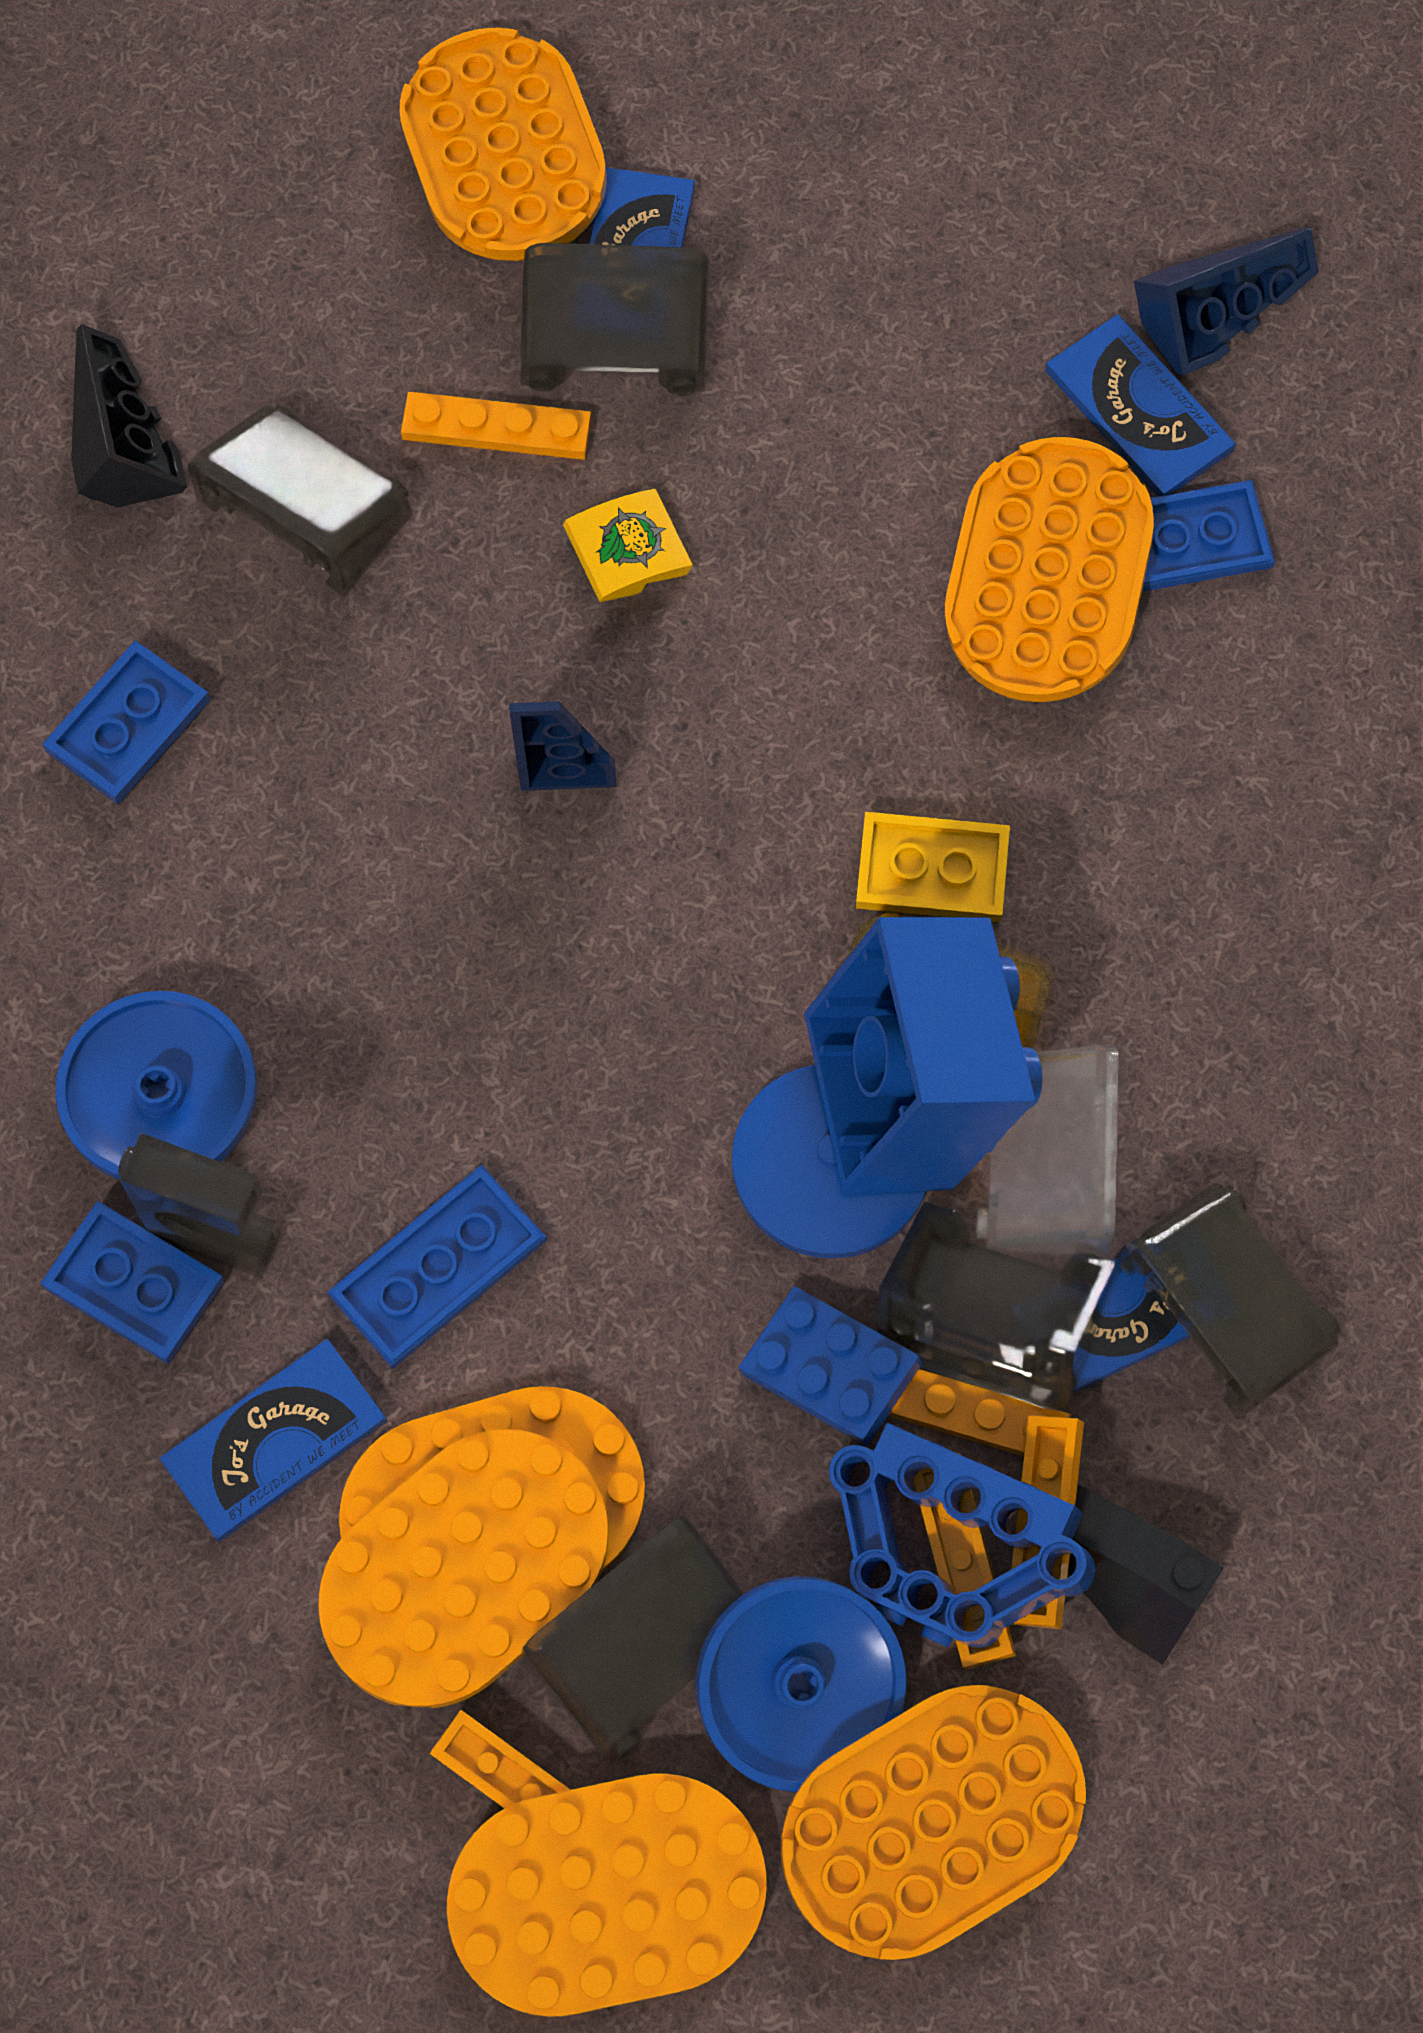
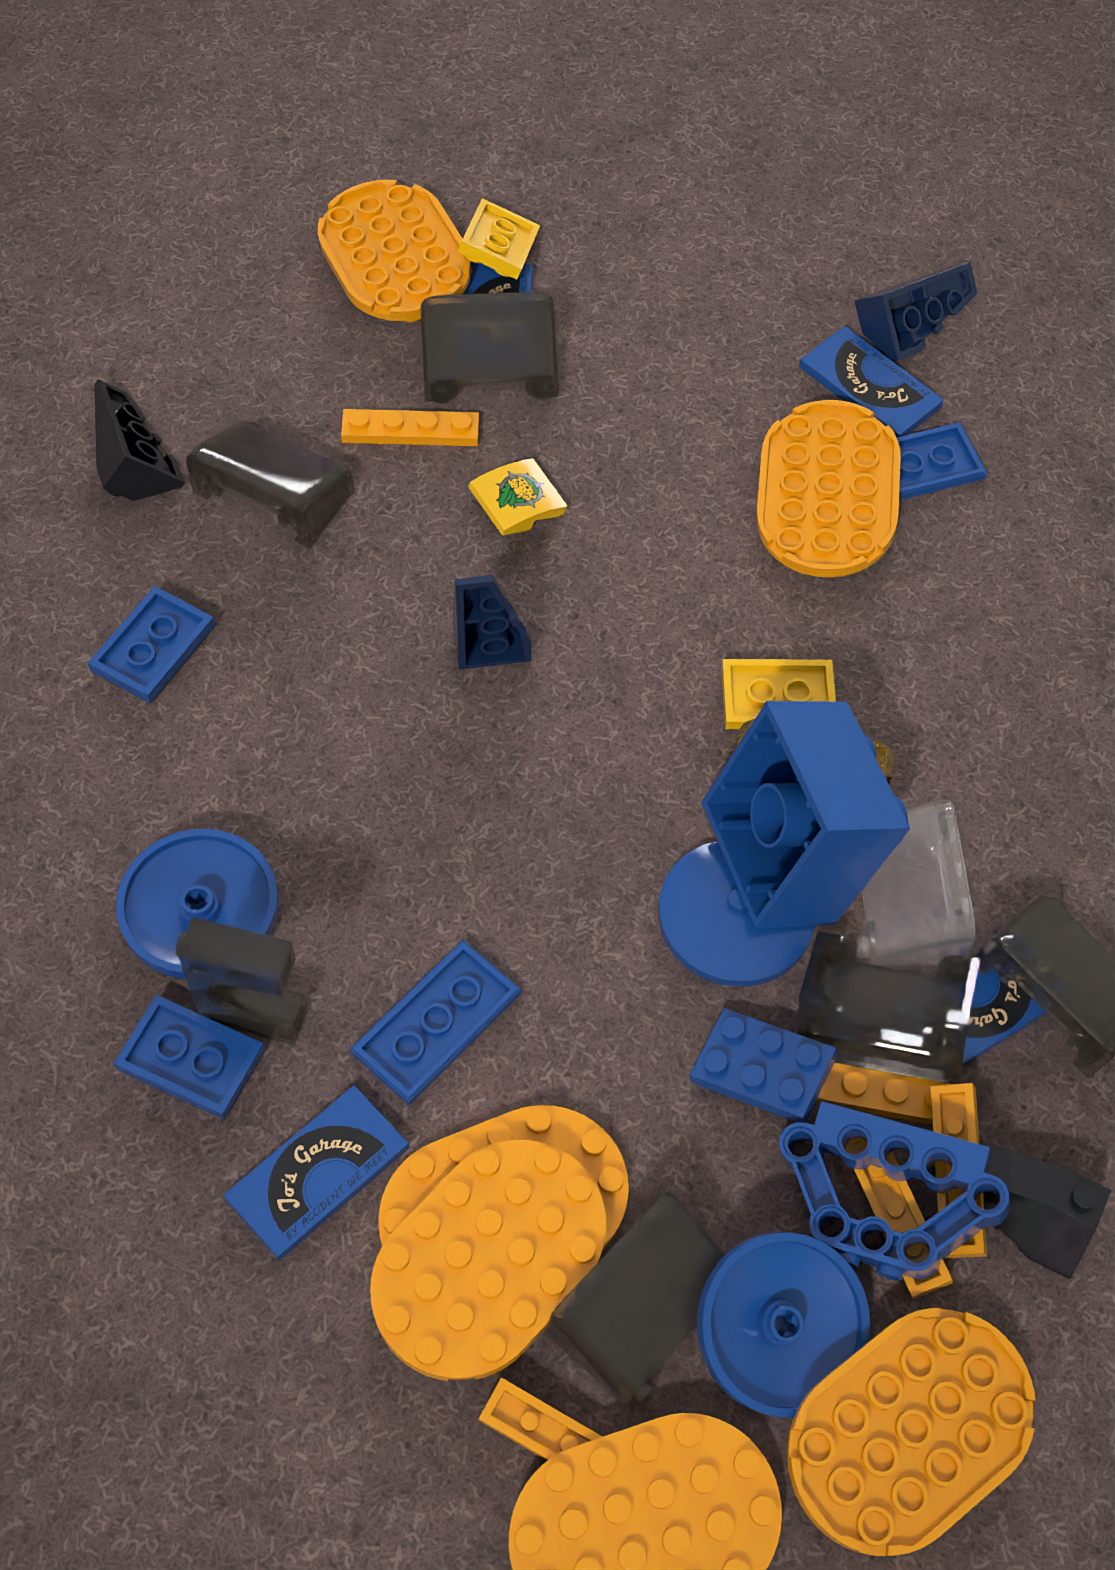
camera: 10 degrees left, 10 degrees down
(649, 142) = (498, 239): none -> yellow plate

